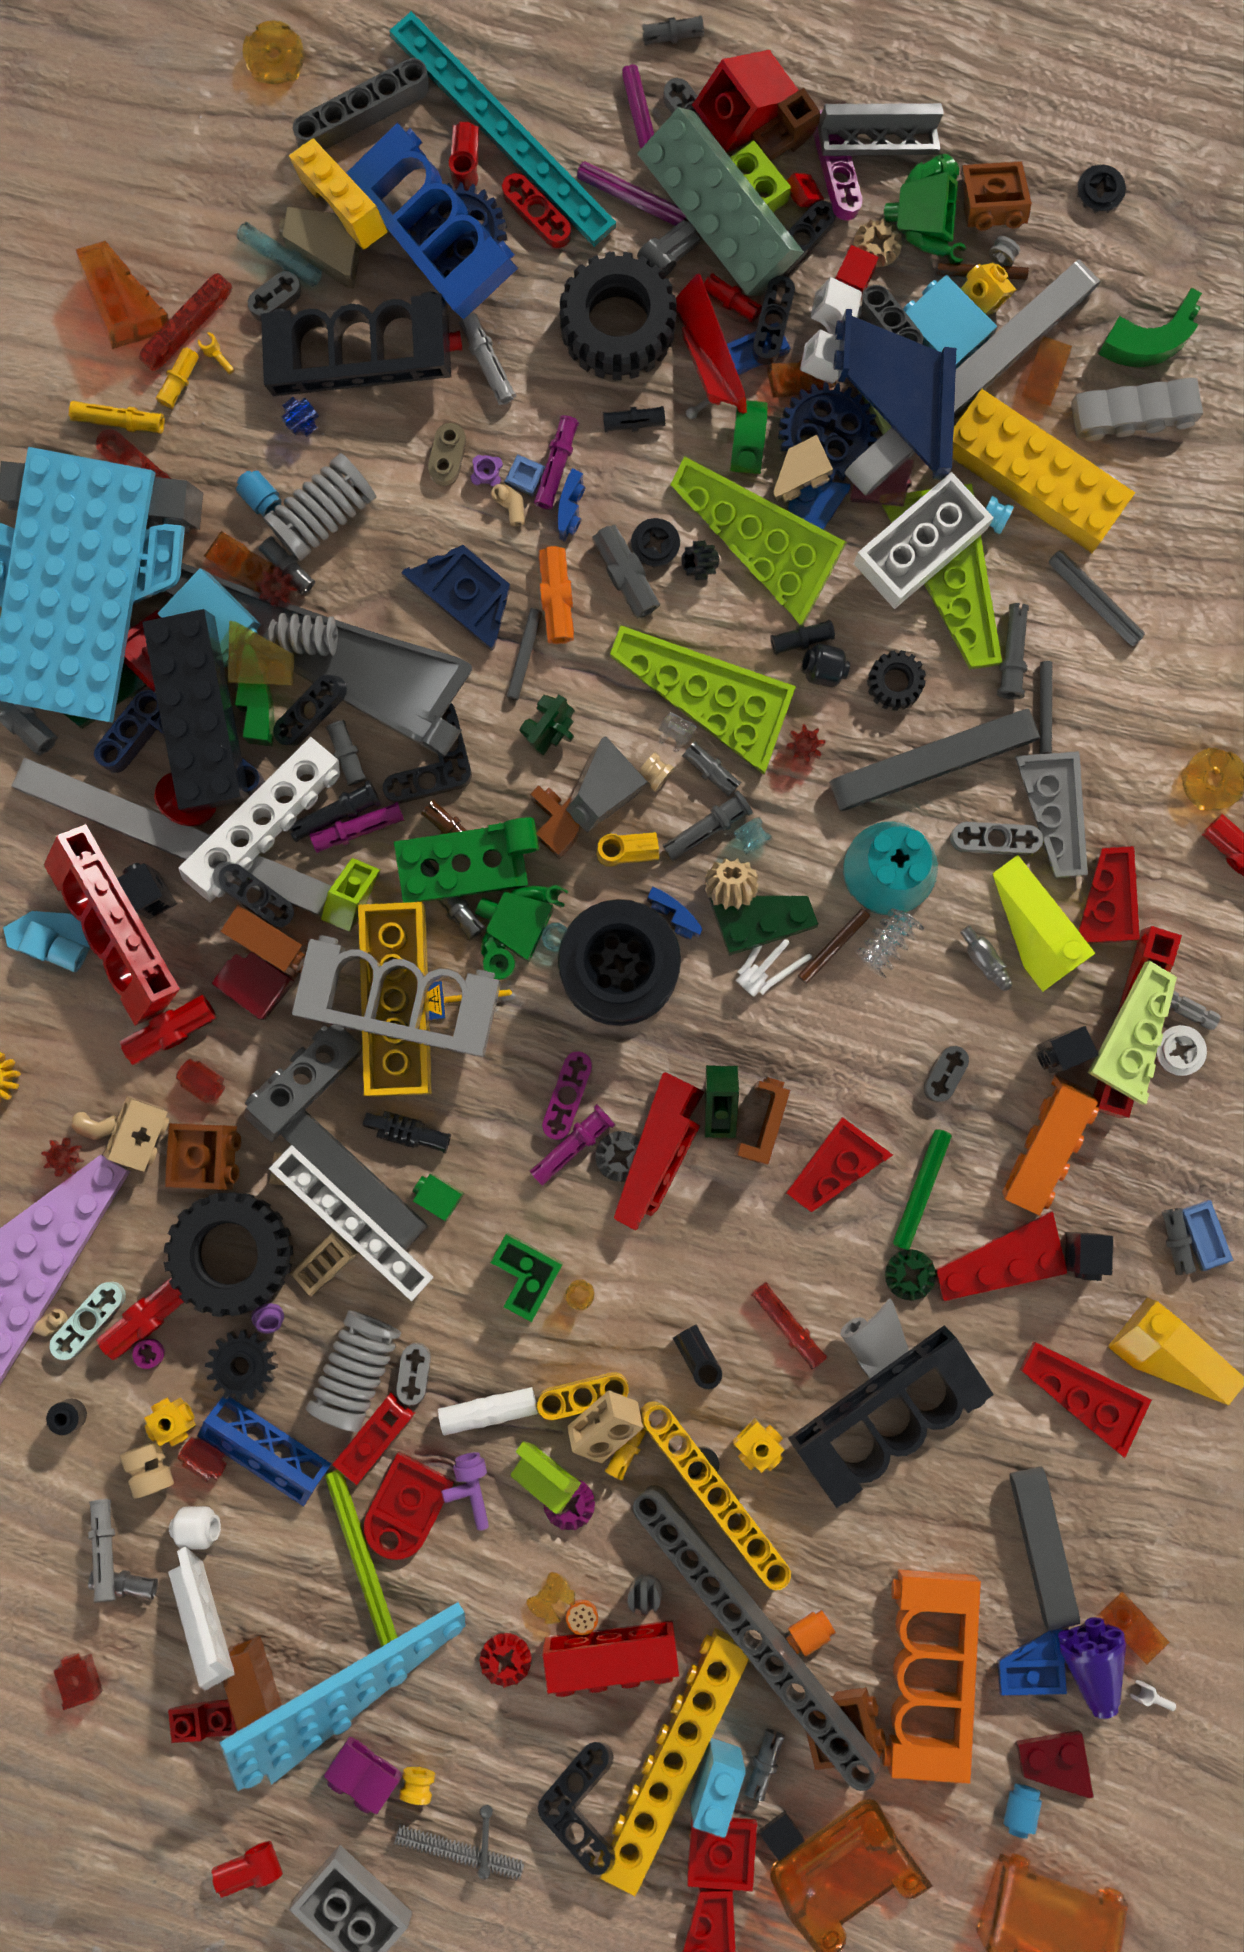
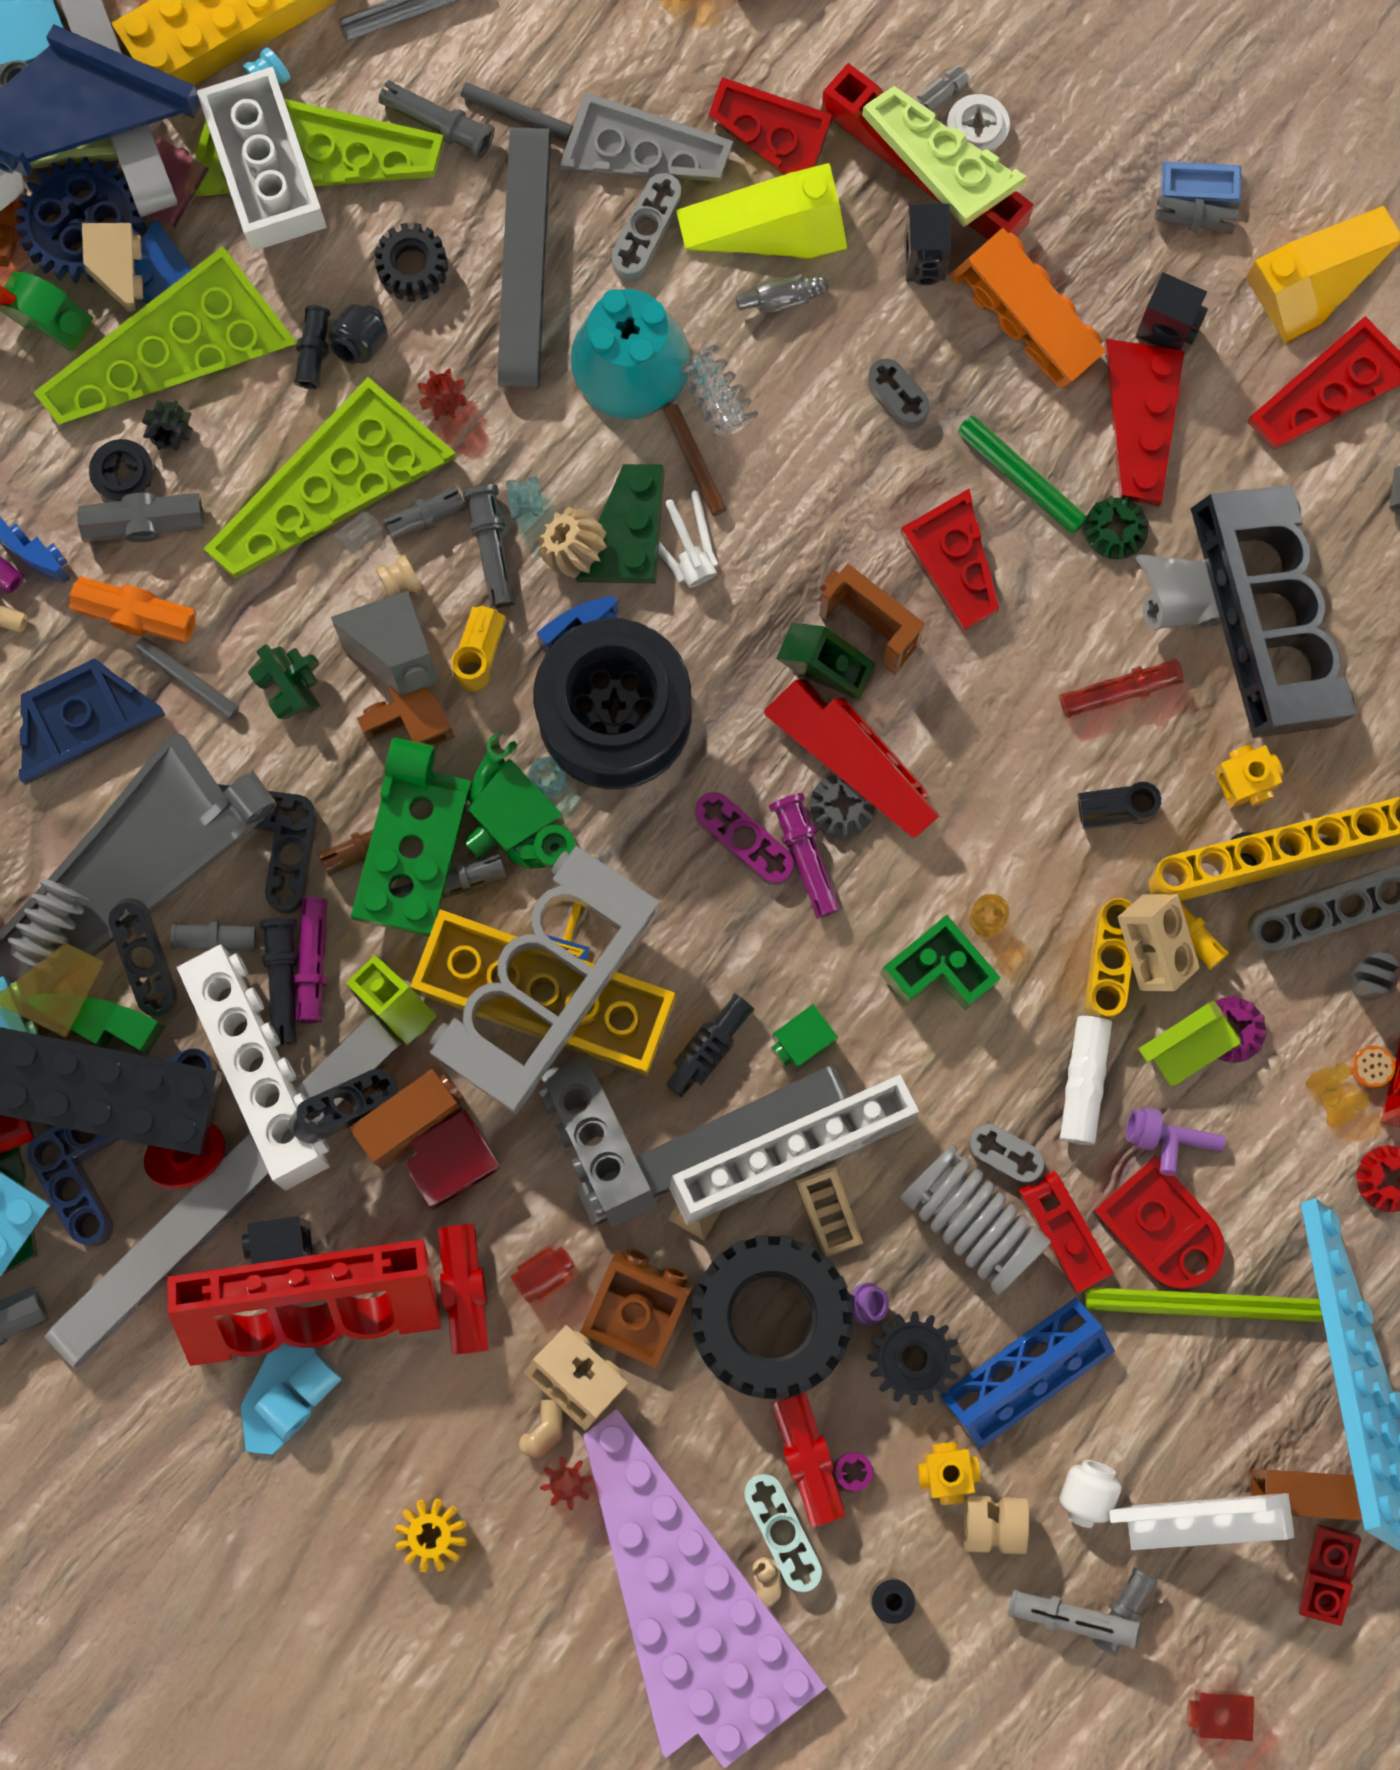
camera: 65 degrees left, 5 degrees down
(202, 1459) = (1010, 1451): clear red brick -> none

